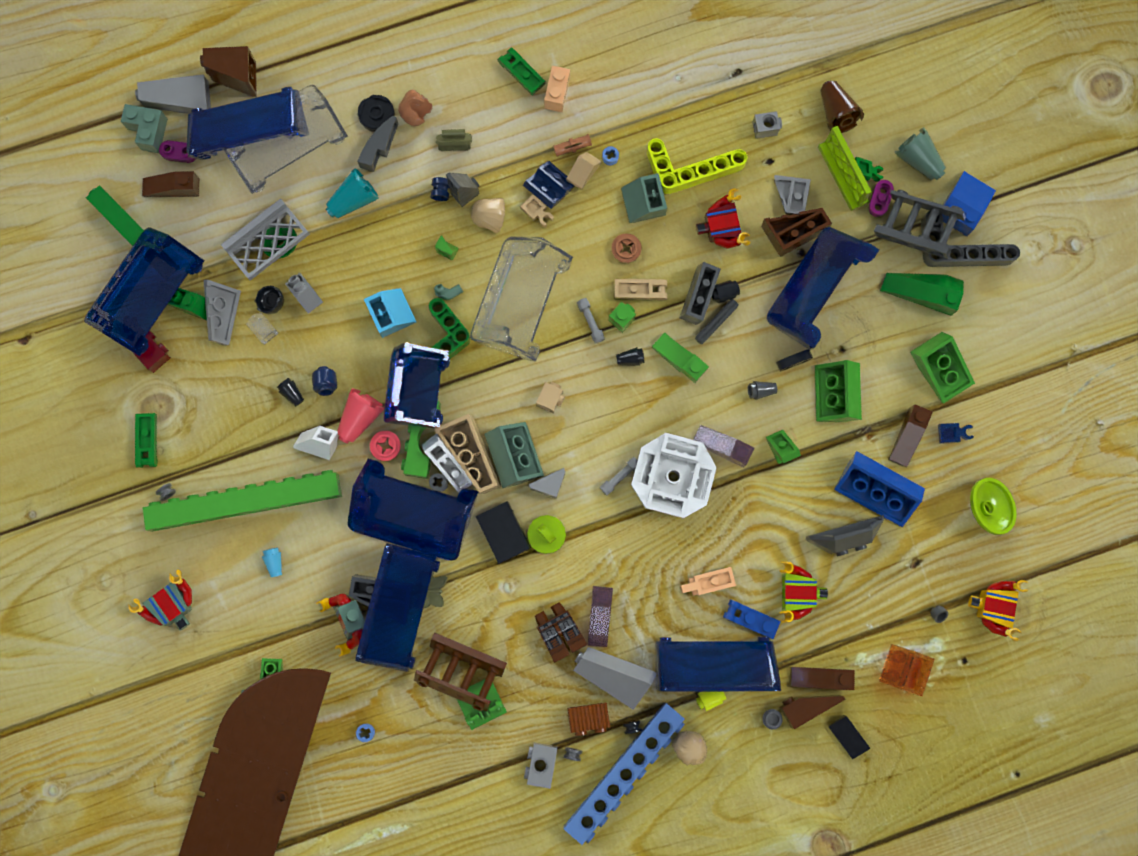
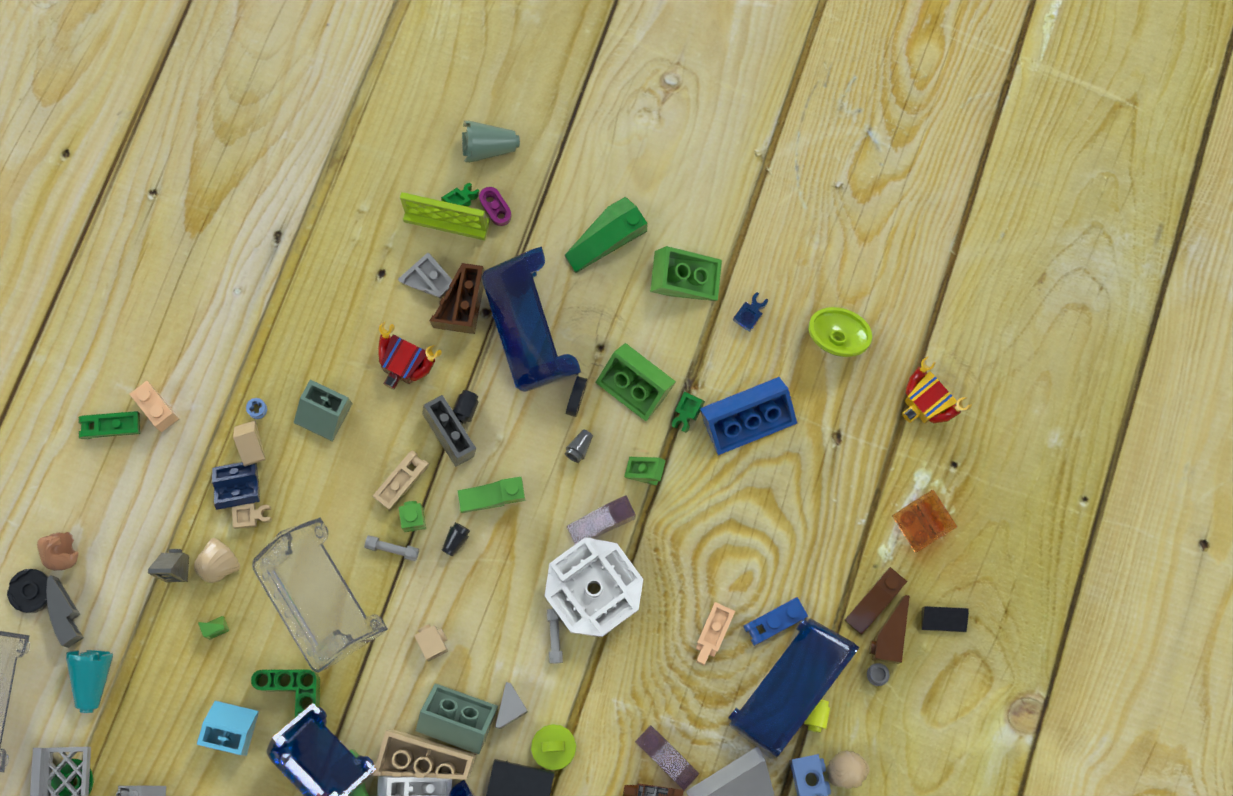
camera: 50 degrees left, 5 degrees down
(440, 189) = (154, 588): dark blue wheel -> none
(446, 293) = (256, 660): sand green arm -> none
(454, 140) = (119, 538): olive piece -> none
(584, 142) = (222, 422): nougat pin -> none
(627, 240) = (346, 456): nougat gear -> none
(696, 178) = (332, 347): neon yellow beam -> none
(714, 324) = (486, 436): dark grey axle -> none
(761, 130) = (347, 258): light grey brick -> none
(799, 592) = (784, 560): torso -> none
(840, 107) = (385, 175): reddish brown cone -> none
(847, 537) = (769, 477): dark grey wedge -> none
(849, 443) = (688, 408): none -> green plate
(910, 434) = (722, 350): slope -> none
(921, 242) = (563, 203): dark grey fence -> none
(939, 614) = (897, 453): dark grey hinge -> none
(961, 251) = (598, 178): dark grey beam -> none
(973, 198) = (560, 140): blue slope -> none

